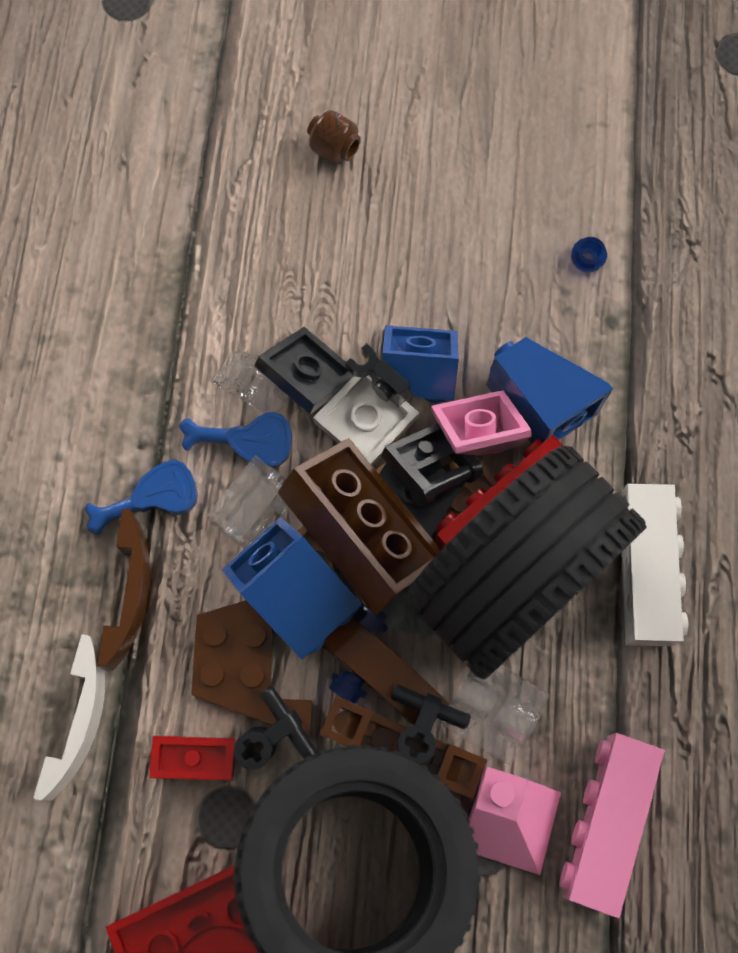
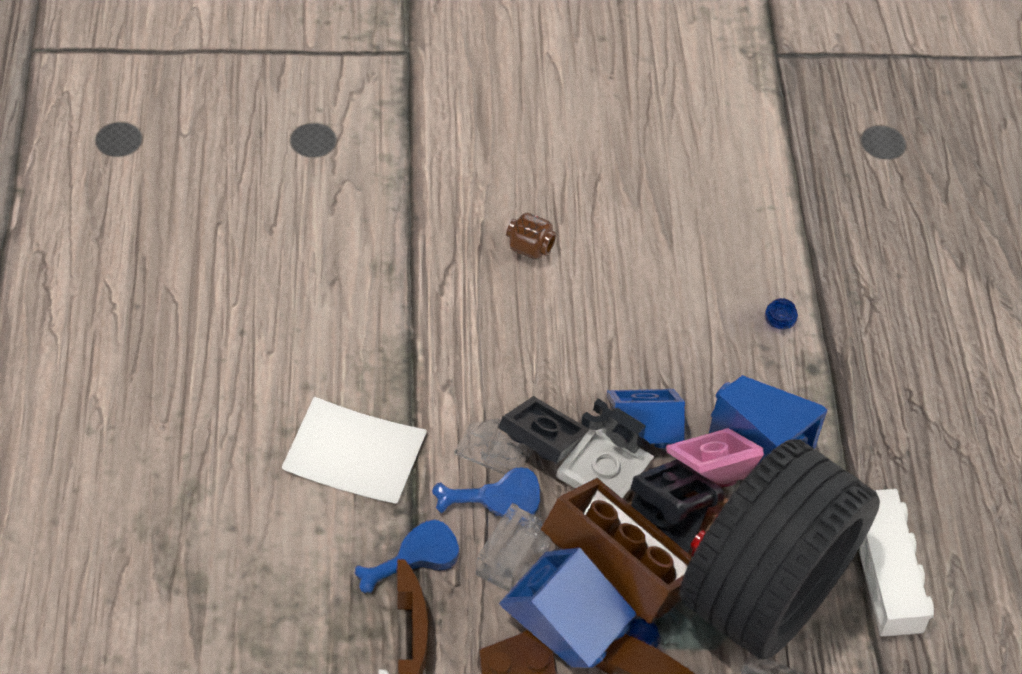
camera: 10 degrees left, 20 degrees down
(108, 369) = (354, 451): none -> white sticker

